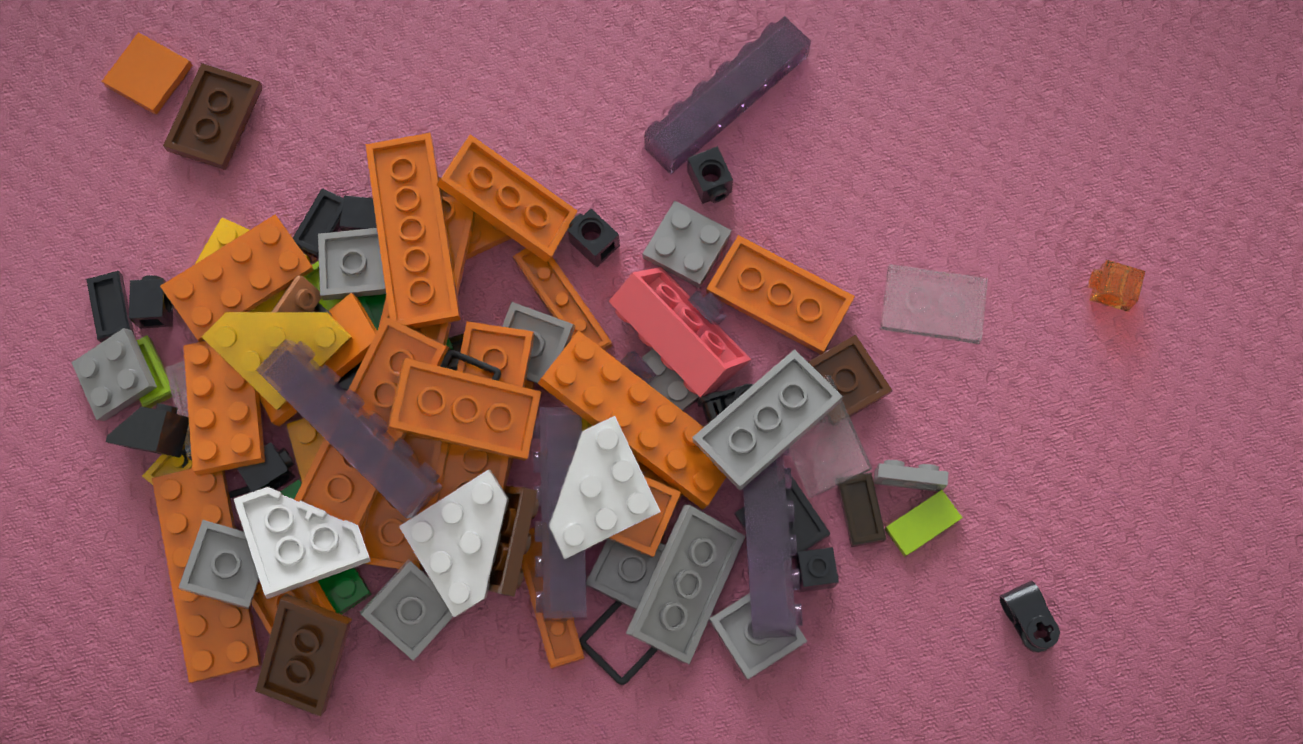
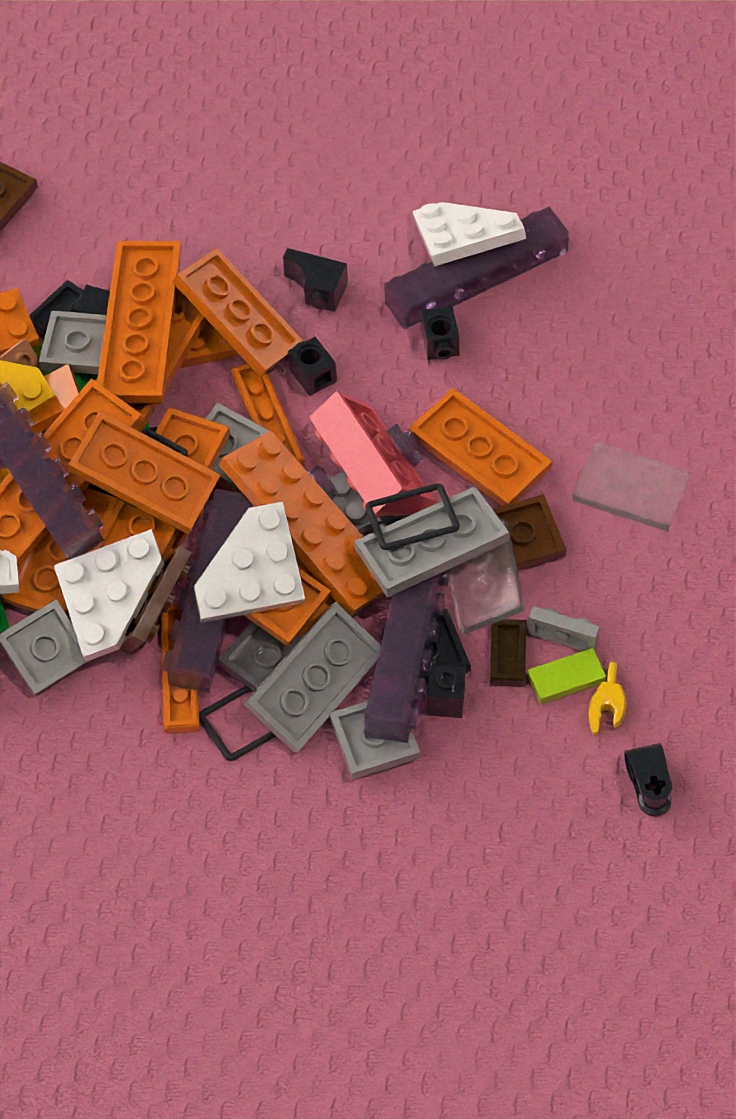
camera: 15 degrees right, 15 degrees down
(575, 136) = (320, 277): none -> black arch
(687, 244) = (402, 390): light grey plate -> none
(708, 60) = (463, 230): none -> white plate
(758, 358) = (417, 538): none -> black piece
(968, 538) = (607, 697): none -> yellow hand

